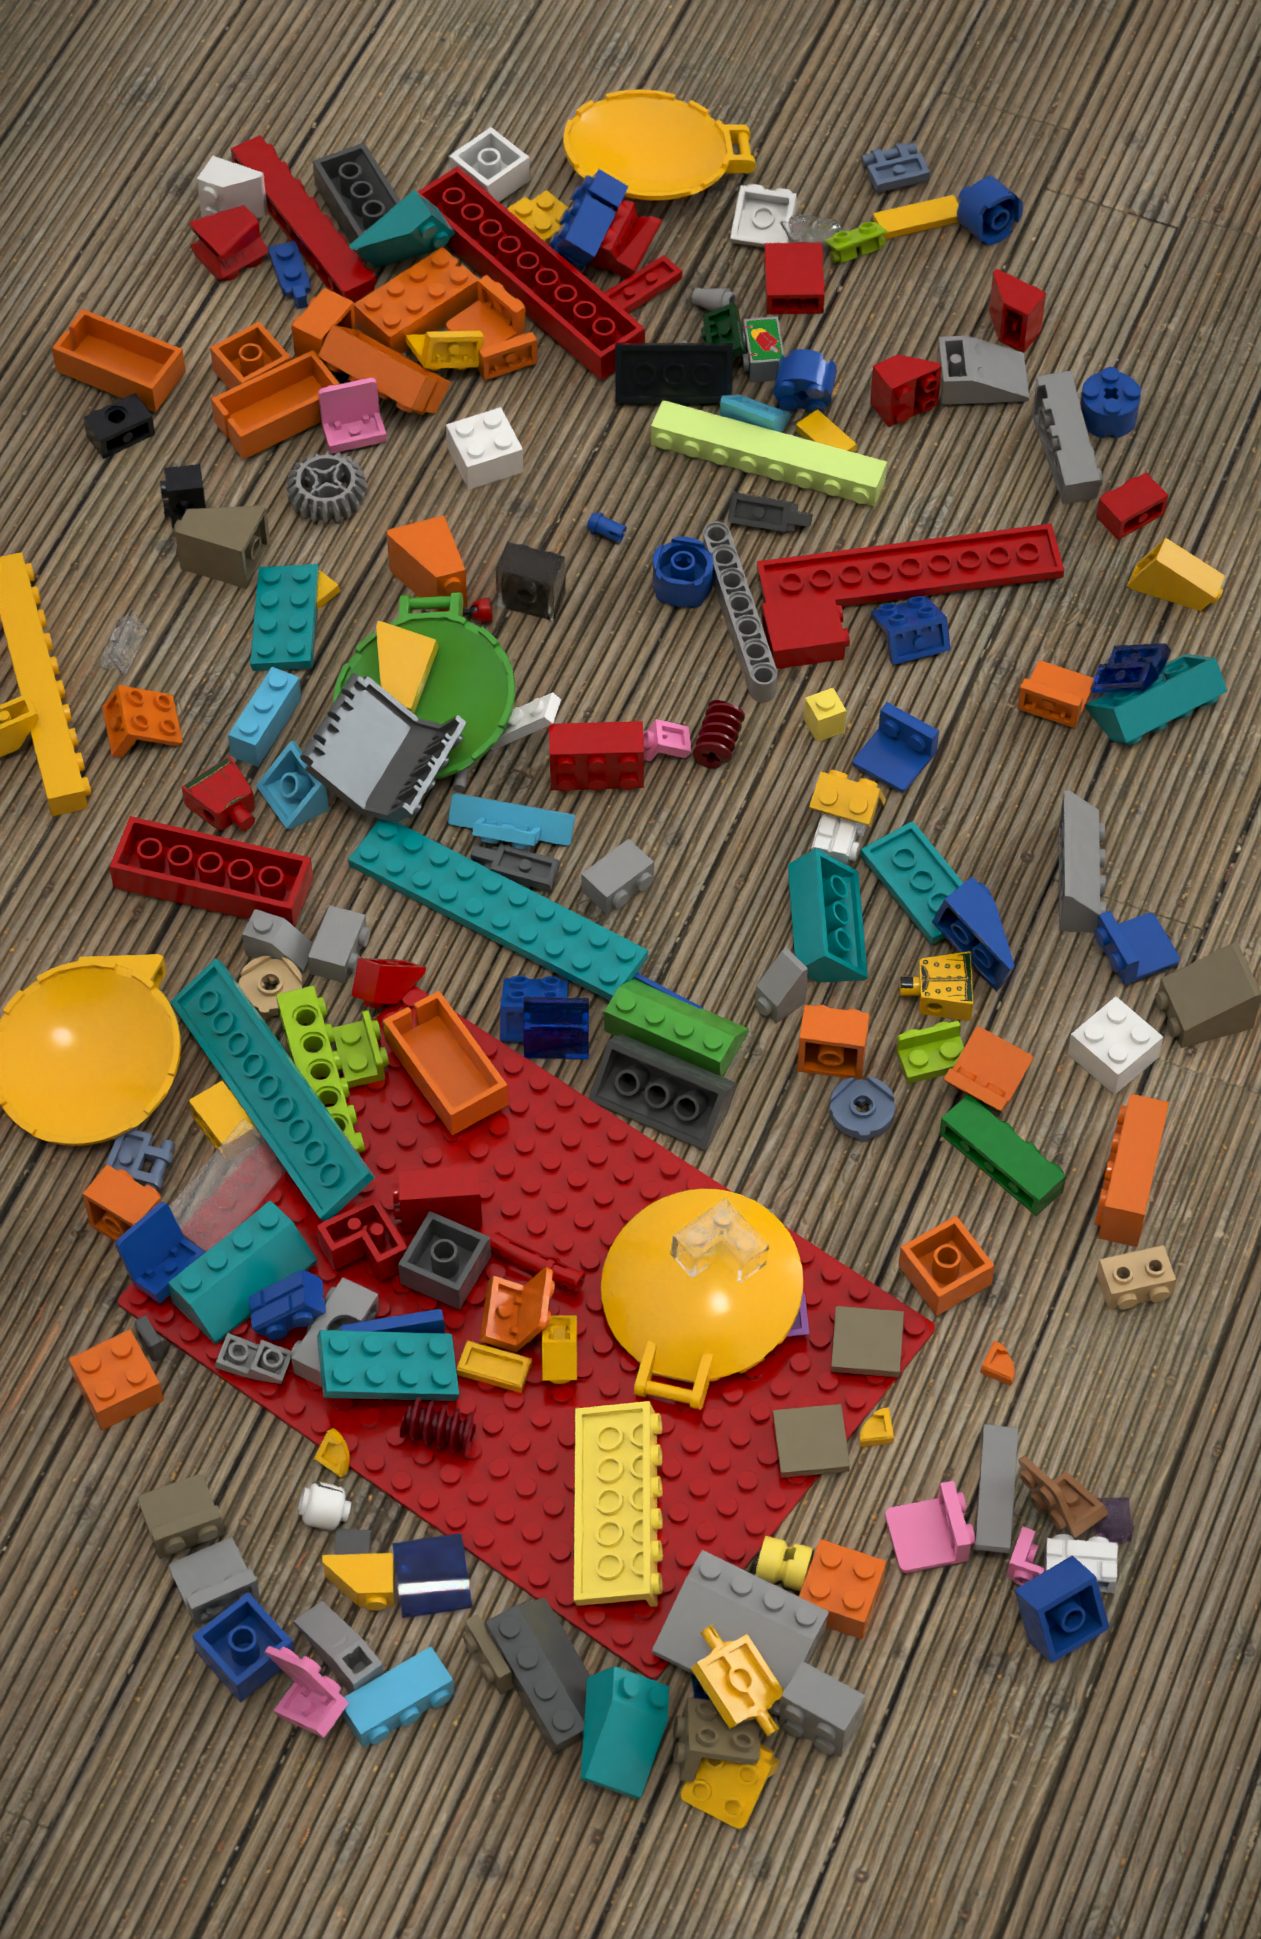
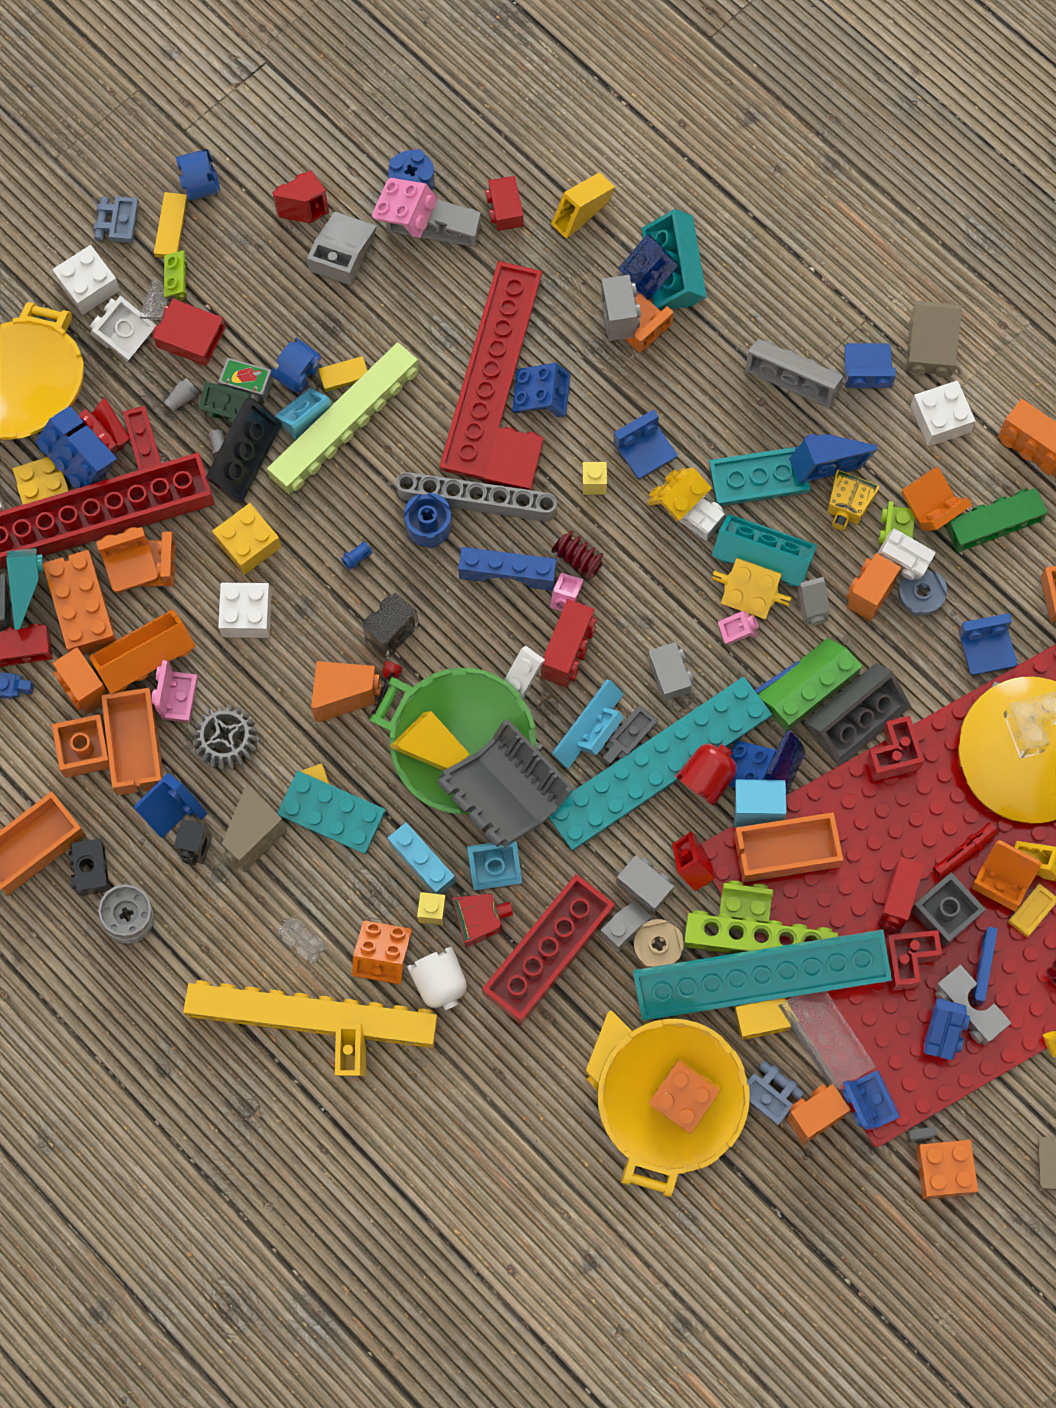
camera: 65 degrees left, 15 degrees up
(76, 470) = (122, 900): none -> light grey wheel
(88, 1061) = (684, 1096): none -> orange brick
(129, 778) = (439, 979): none -> white cylinder
(210, 744) = (431, 908): none -> light yellow brick
(221, 459) = (168, 805): none -> blue bracket
(248, 1259) = (898, 1051): teal slope -> none
(254, 1361) = (967, 1069): light grey slope -> none
(387, 1365) = (1016, 980): teal plate -> none
(447, 349) = (140, 603): yellow bracket -> none
(488, 1010) = (759, 802): none -> medium azure slope
(500, 949) = (709, 771): none -> red cylinder
(571, 418) = (246, 539): none -> yellow brick
(623, 1141) = (900, 755): none -> red brick
(670, 684) = (487, 564): none -> blue arch
(713, 928) = (738, 627): none -> bright pink bracket
(766, 513) = (397, 441): dark grey hinge -> none
(767, 920) = (751, 588): none -> yellow plate
(804, 165) = (86, 279): none -> white brick
(828, 1200) = (987, 644): none -> blue bracket
(891, 1056) = (907, 554): none -> white brick
(904, 388) = (337, 303): red slope -> none
(1052, 394) = (405, 204): none -> bright pink bracket
(1052, 648) = (620, 307): none -> light grey brick

